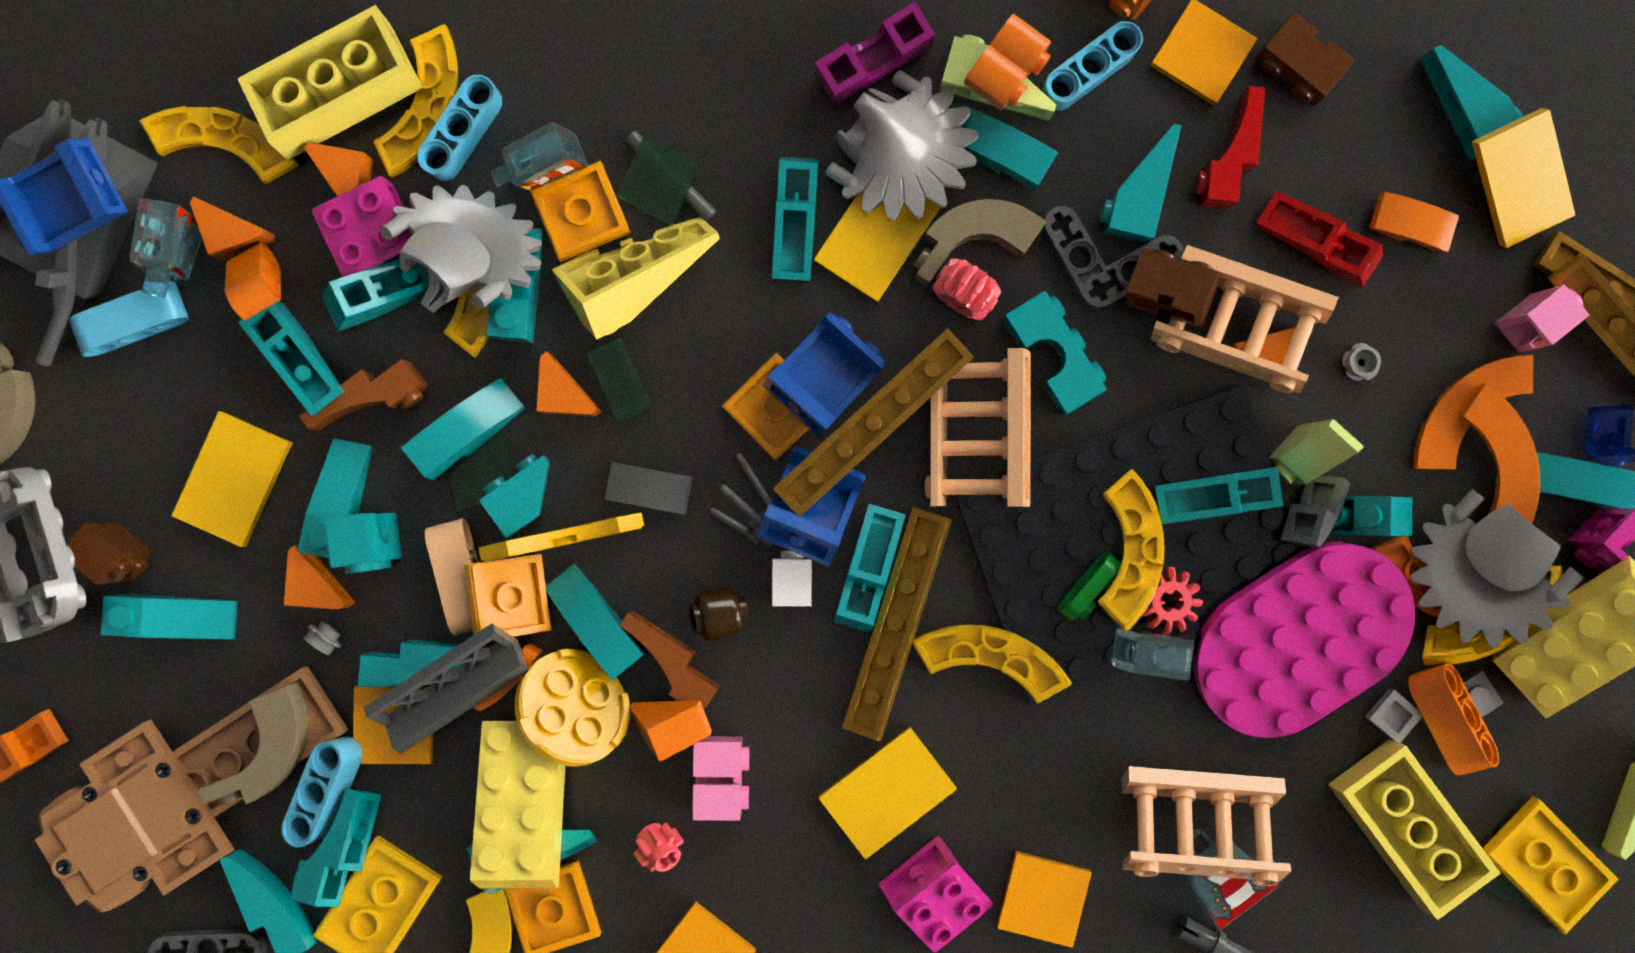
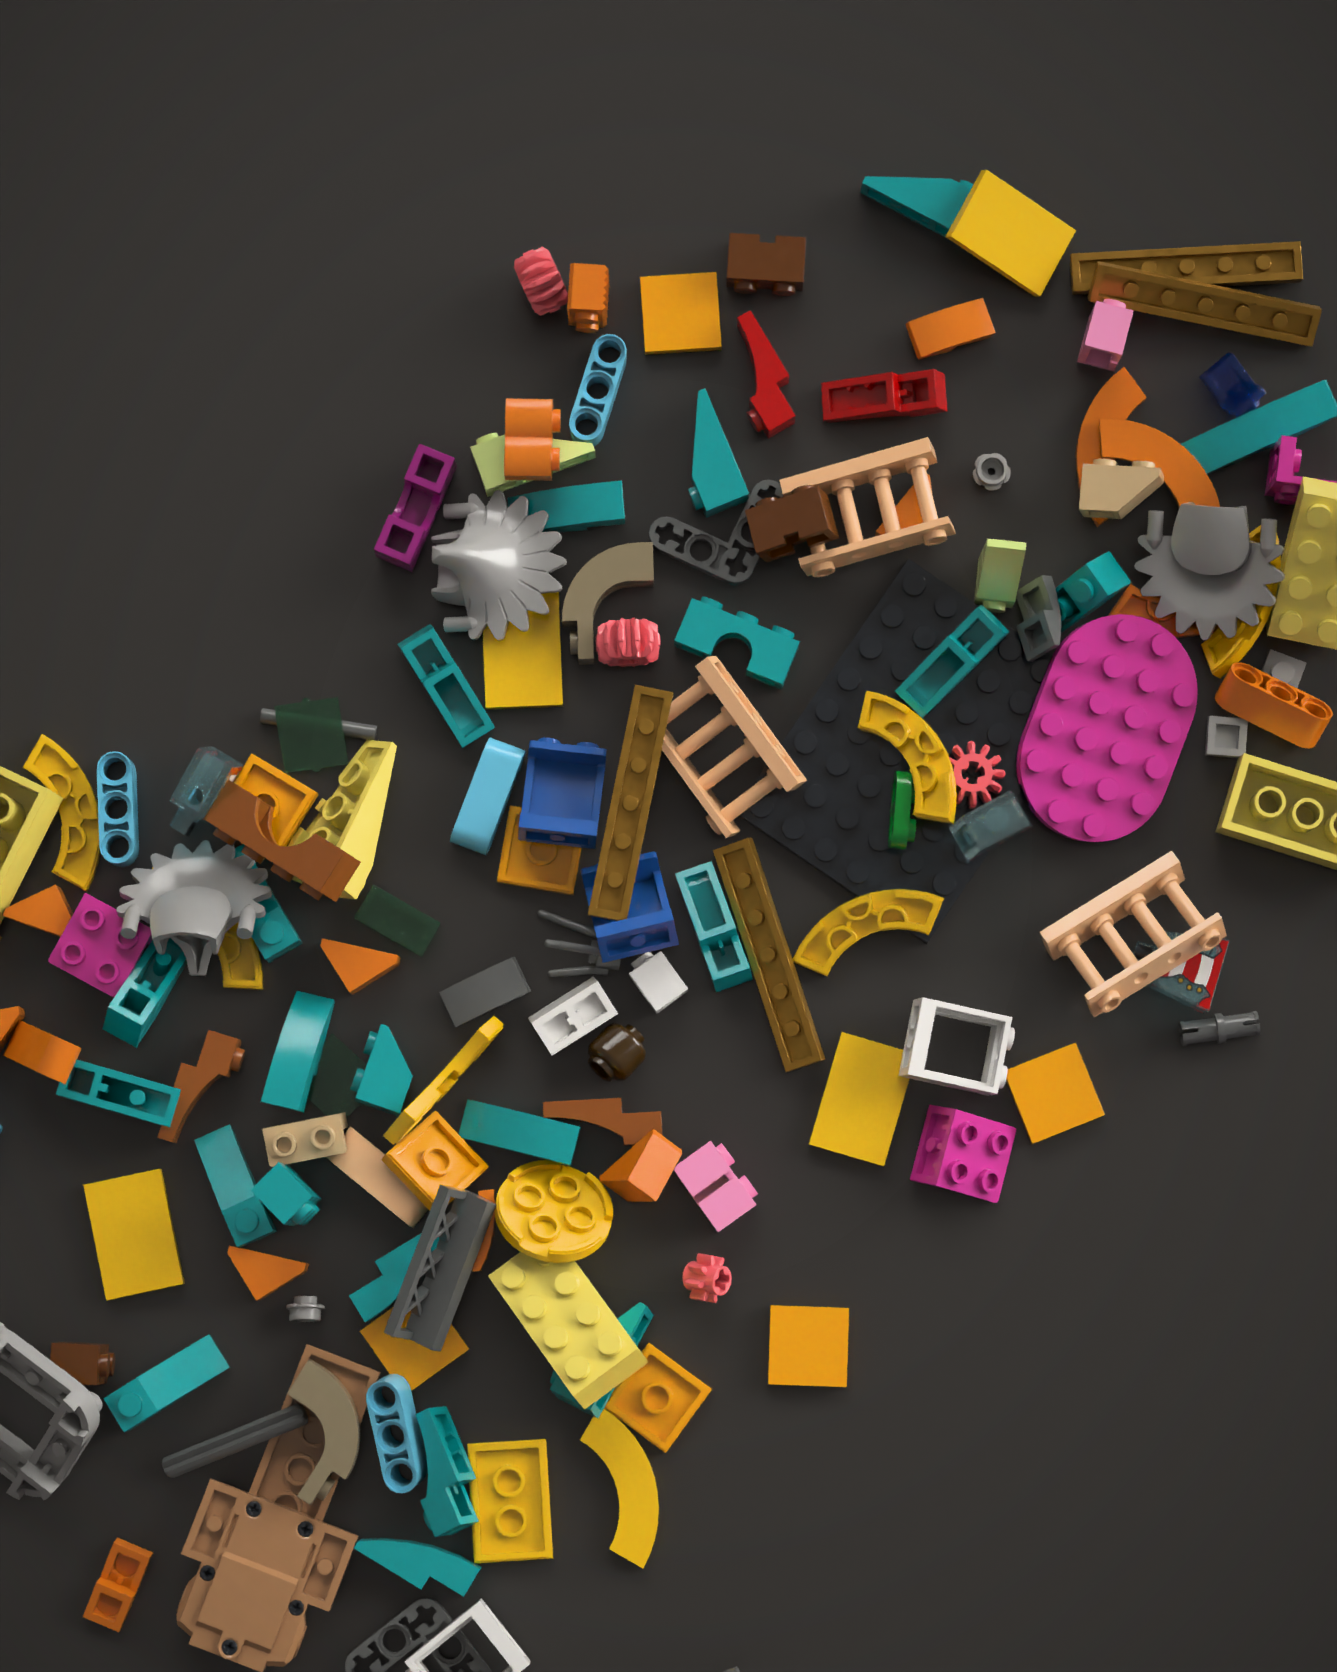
camera: 40 degrees left, 5 degrees down
(188, 703) = (235, 1440): none -> dark grey axle
(417, 503) = (306, 1139): none -> tan bracket
(578, 286) = (315, 861): none -> dark orange arch
(703, 558) = (572, 1015): none -> white hinge
(764, 332) = (487, 796): none -> medium azure beam
(967, 783) = (919, 1036): none -> white window
(1458, 451) = (1114, 489): none -> tan slope

